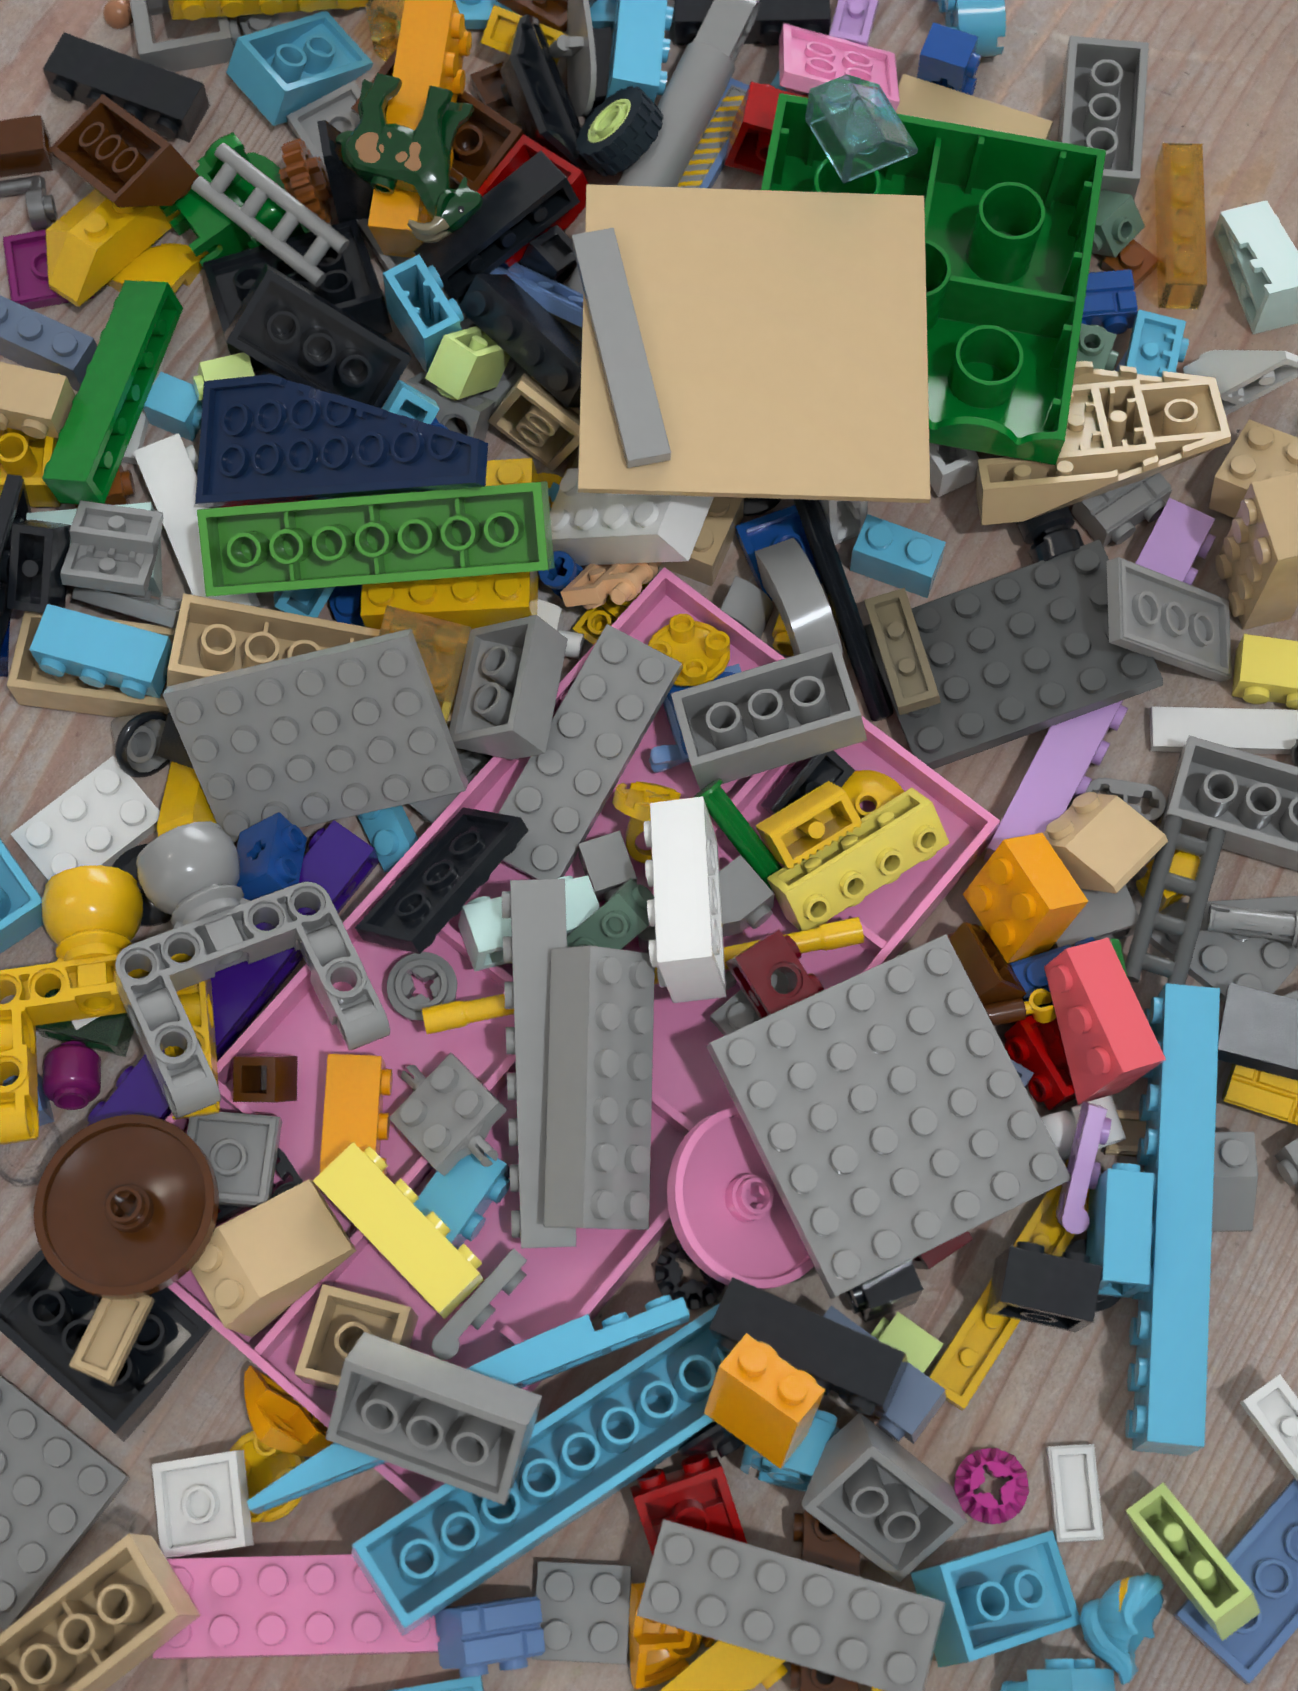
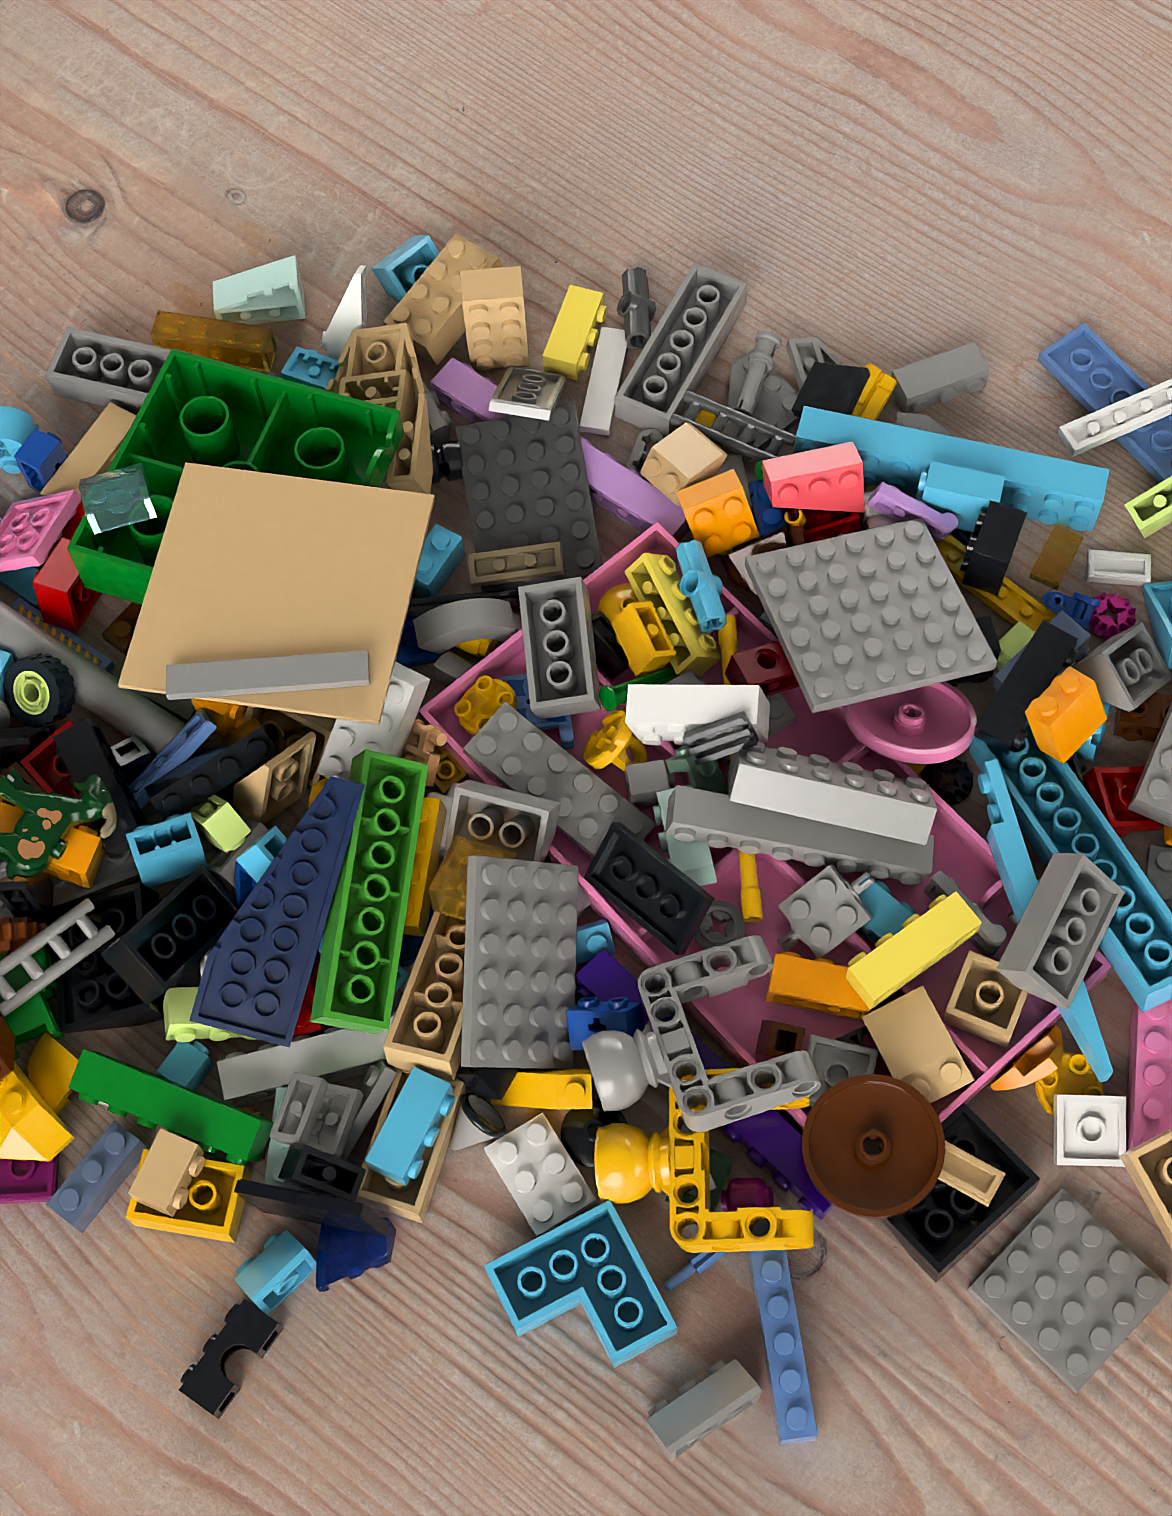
camera: 80 degrees left, 5 degrees down
(631, 927) = (723, 750): none -> black tile
(898, 885) = (701, 586): none -> medium azure piece
(981, 1419) = (1078, 606): none -> blue piece
(1074, 1398) = (1056, 557): none -> clear yellow tile

